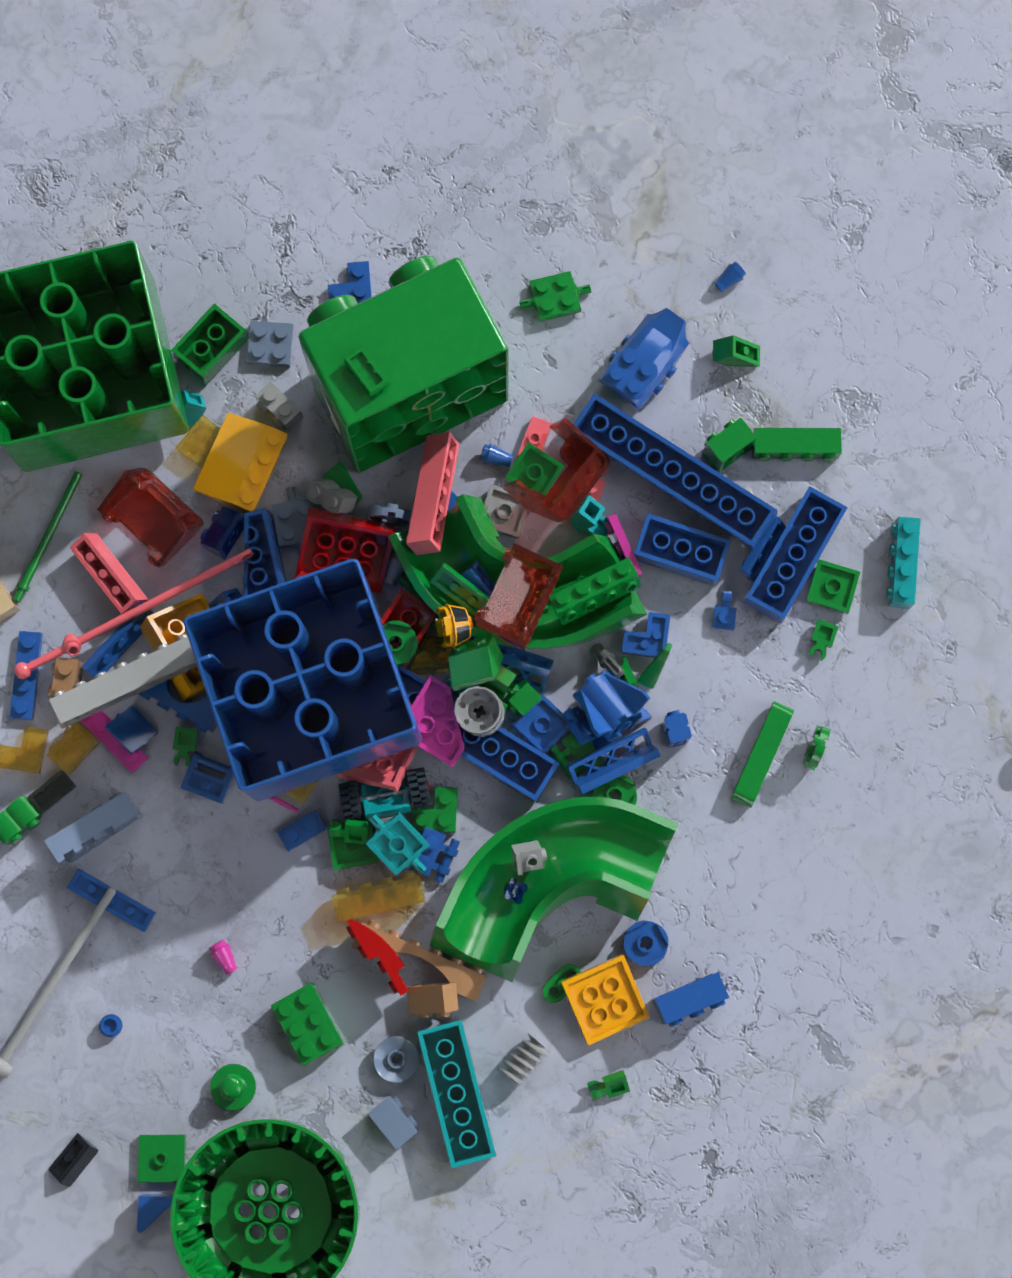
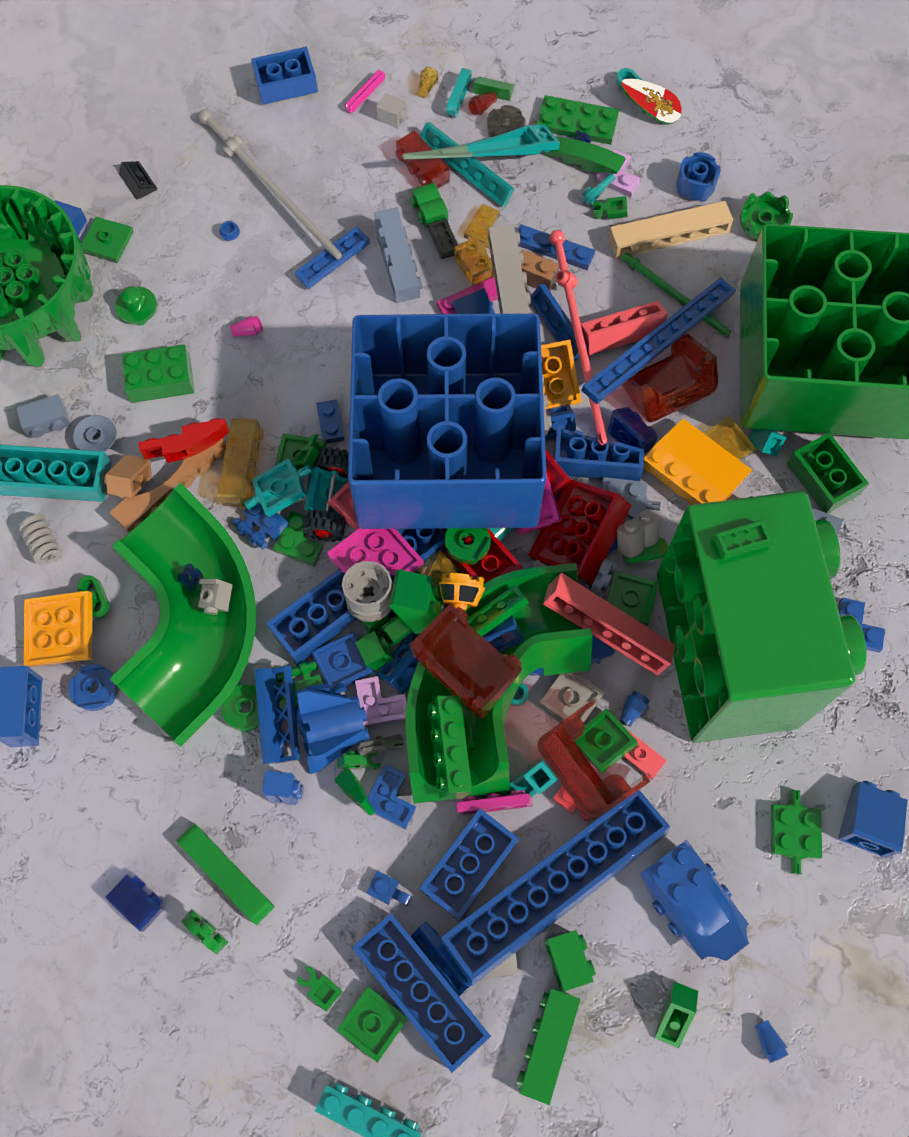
camera: 110 degrees right, 10 degrees down
(116, 532) = (657, 341): none -> blue plate
(393, 485) = (633, 595): none -> green plate
(524, 235) = (874, 820): none -> blue slope
(573, 680) = (379, 709): none -> lavender plate
(813, 820) = (135, 902): none -> clear blue brick

